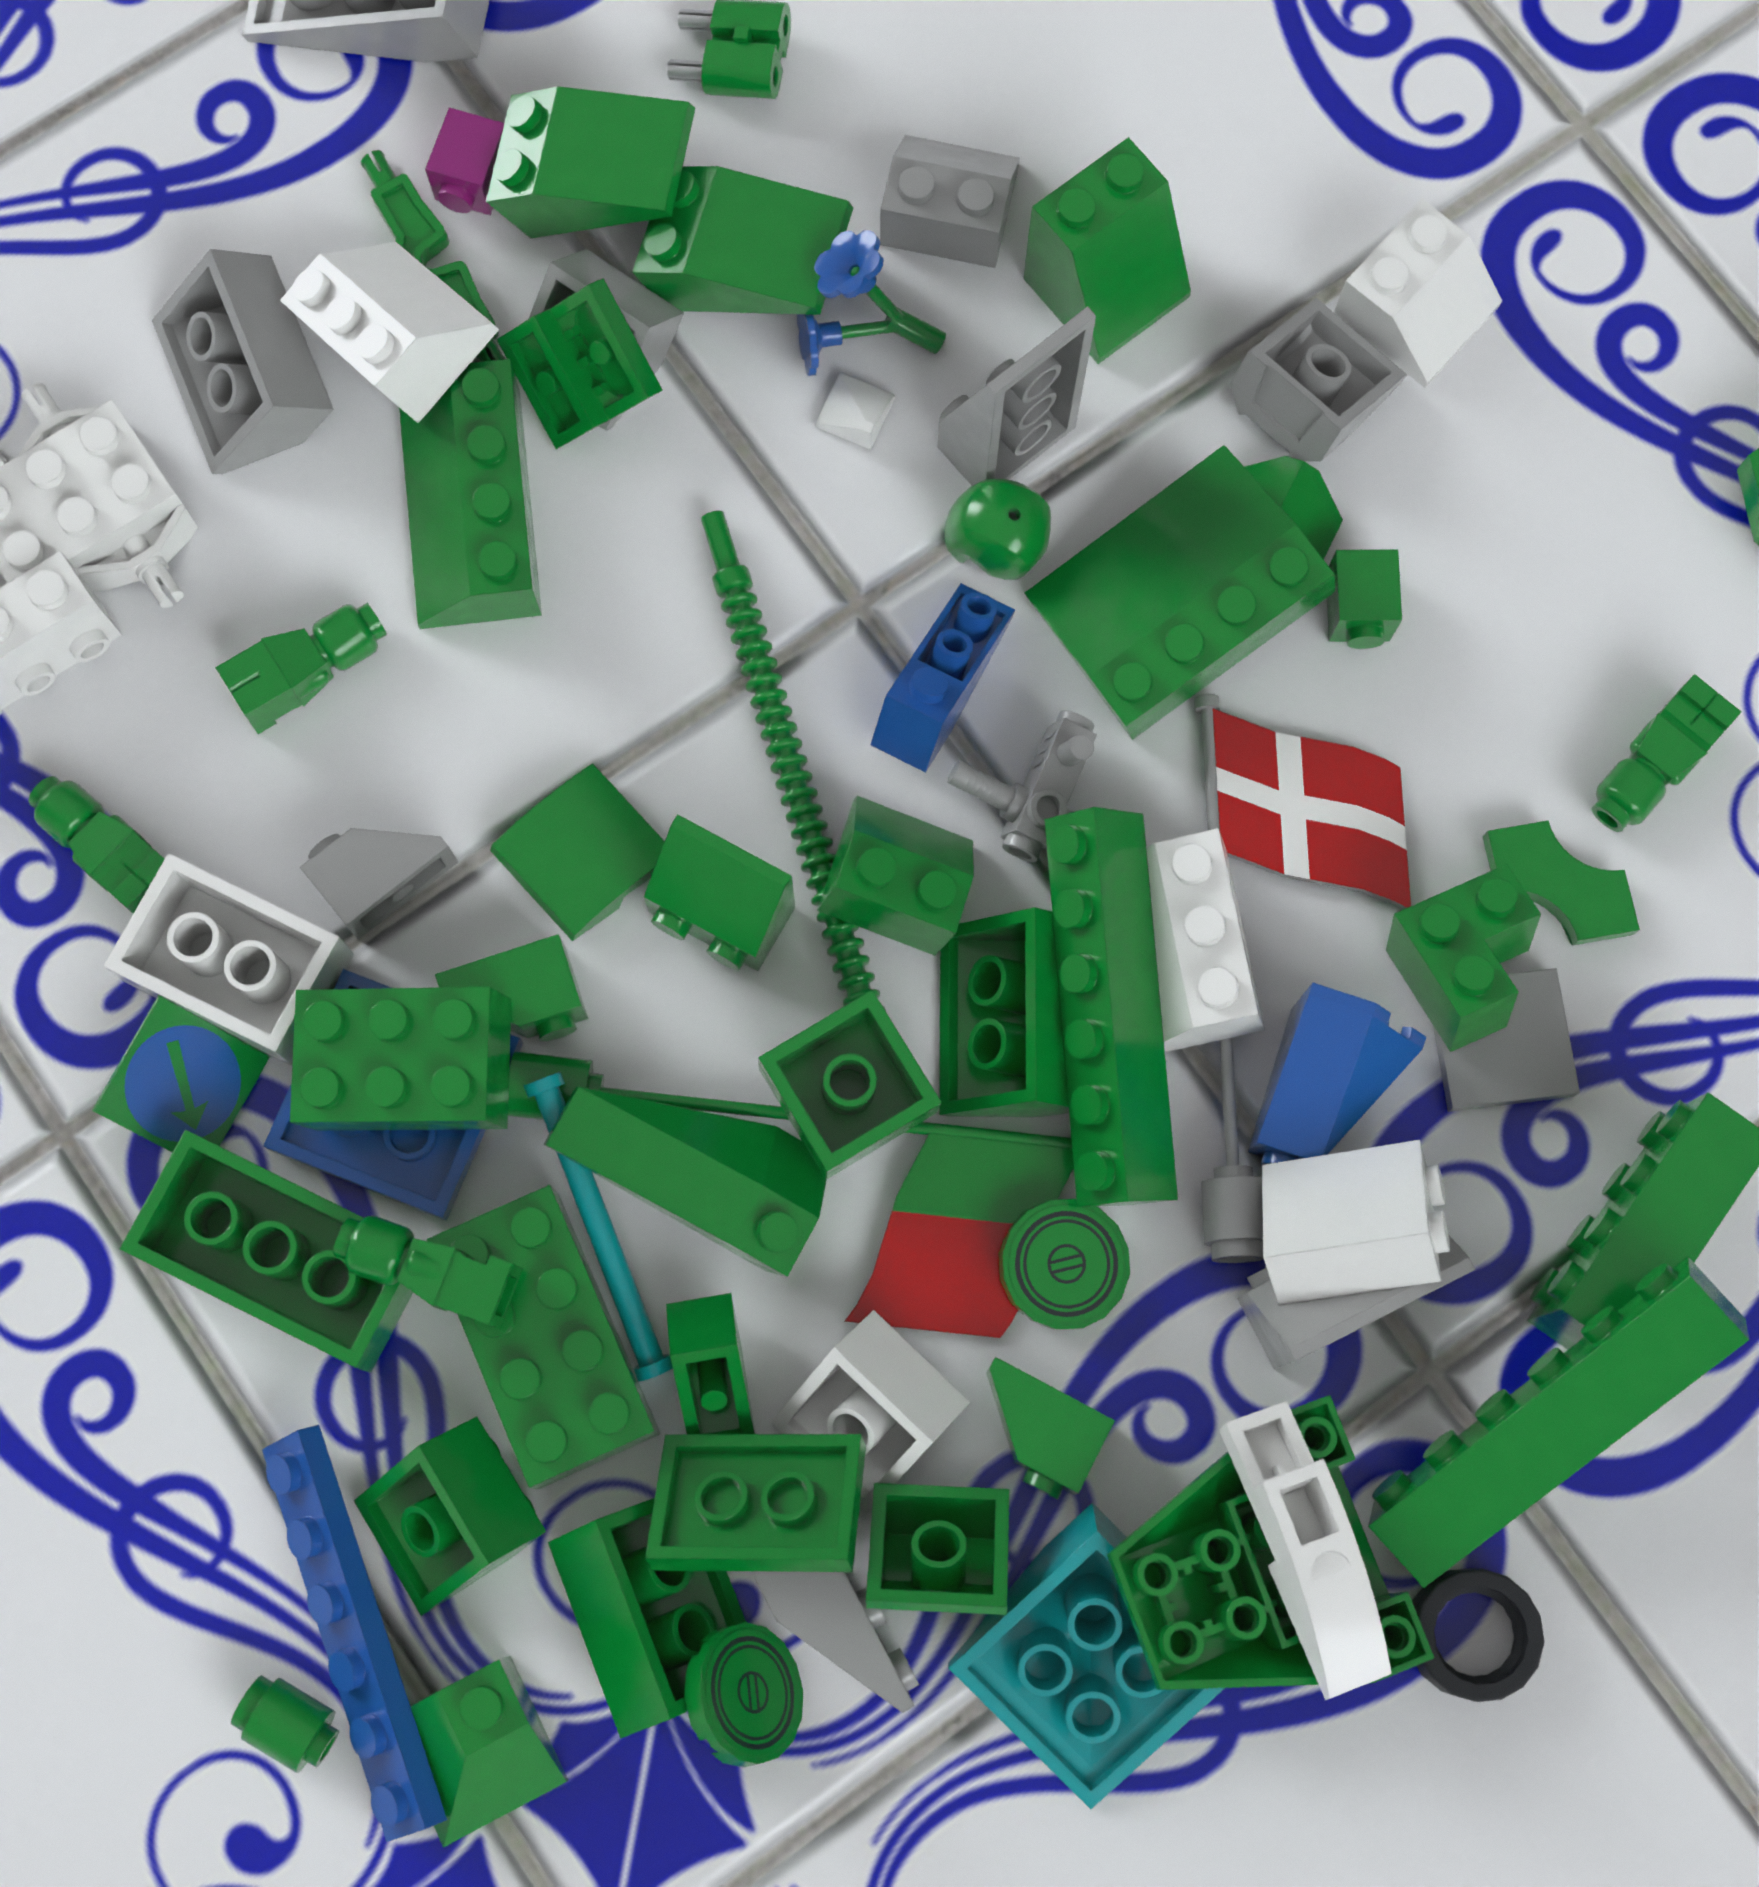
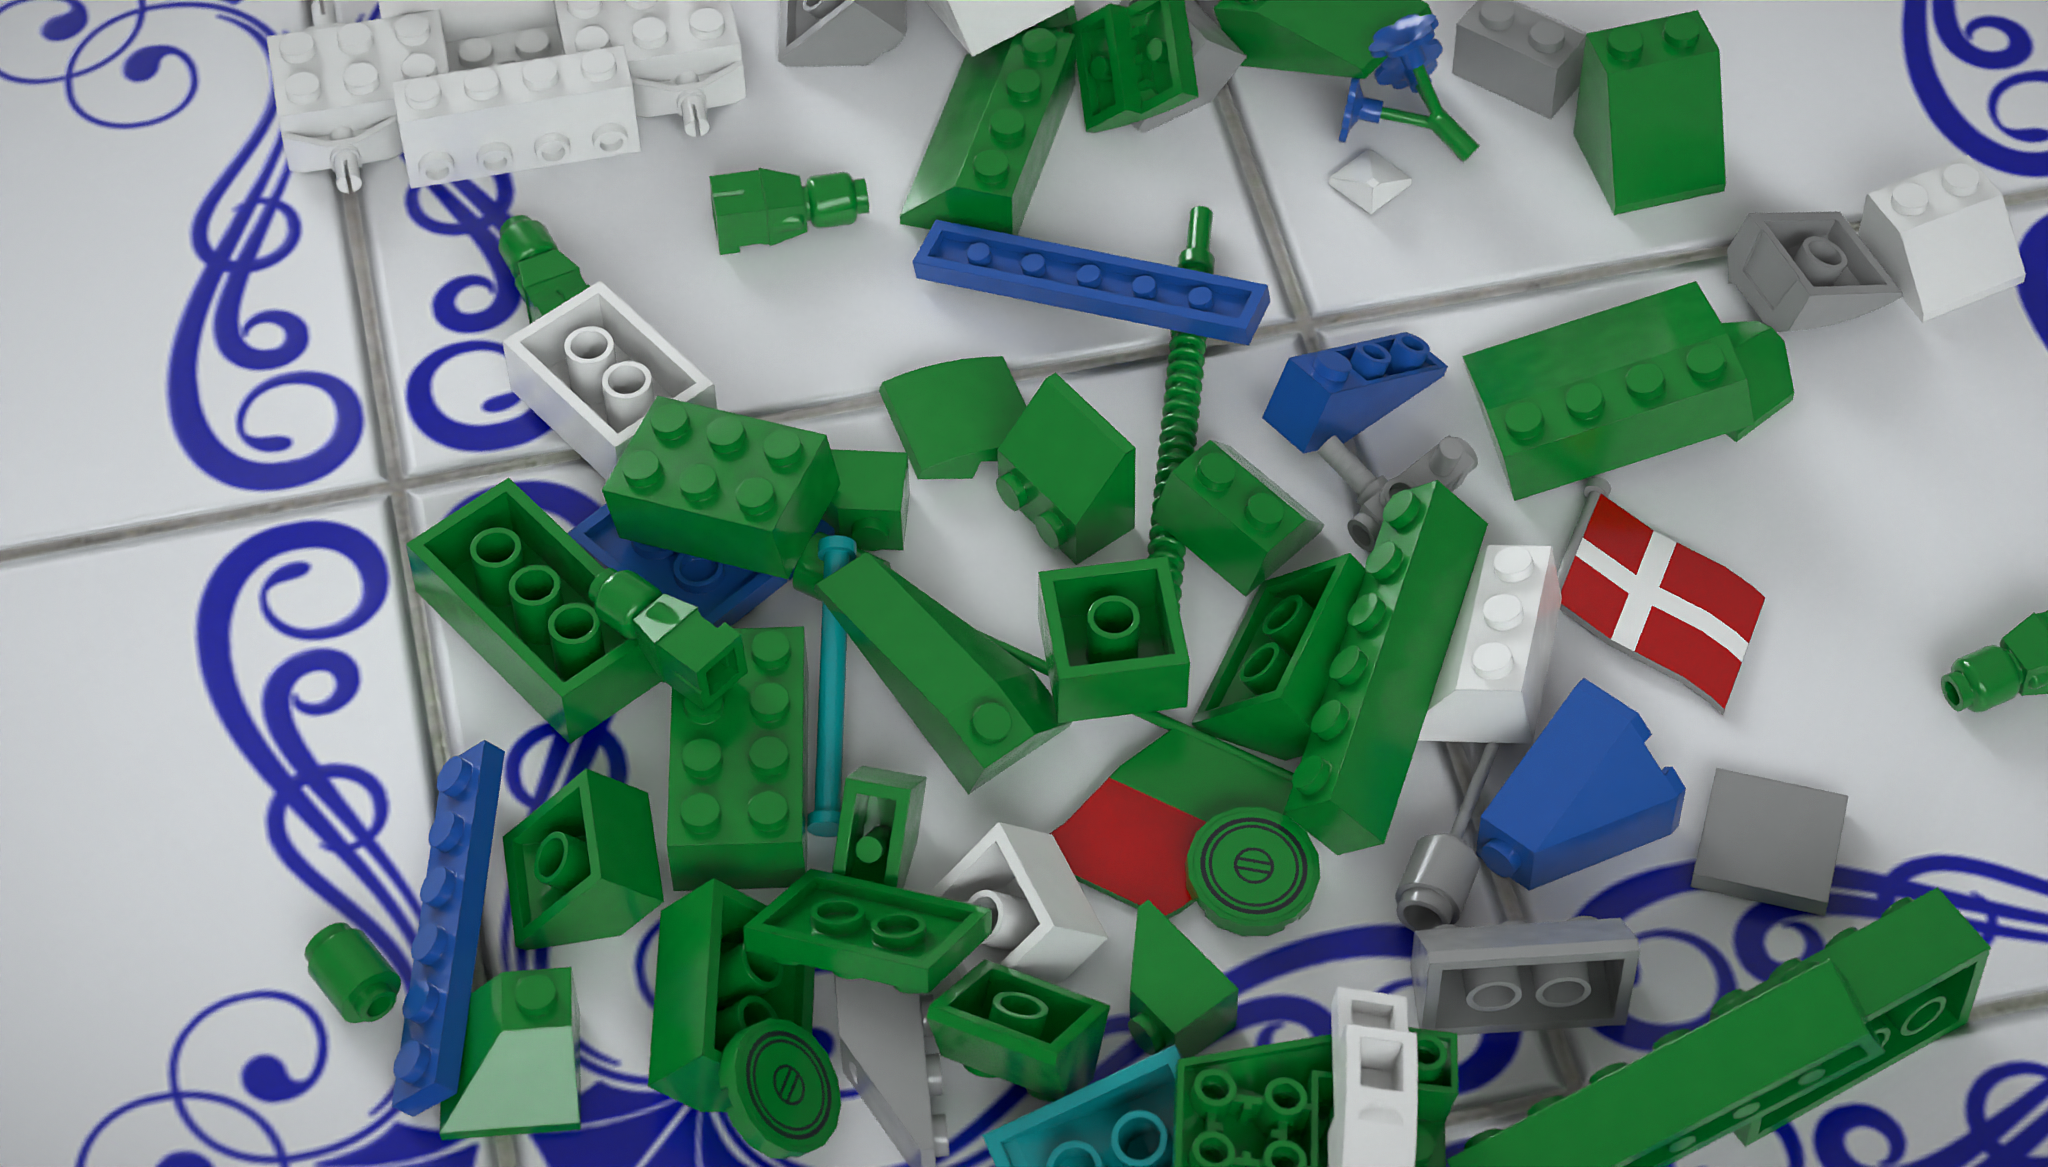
camera: 25 degrees right, 25 degrees down
(180, 1078) = (530, 446): piece -> none
(374, 872) = (773, 371): light grey slope -> none
(646, 652) = (1092, 282): none -> blue plate
(985, 534) = (1458, 303): green helmet -> none
(1021, 407) = (1514, 180): light grey slope -> none
(1352, 1222) = (1539, 891): white brick -> none
(1366, 597) = (1784, 446): green brick -> none
(1454, 950) = (1753, 733): green brick -> none
(1584, 899) = (1901, 754): green tile -> none

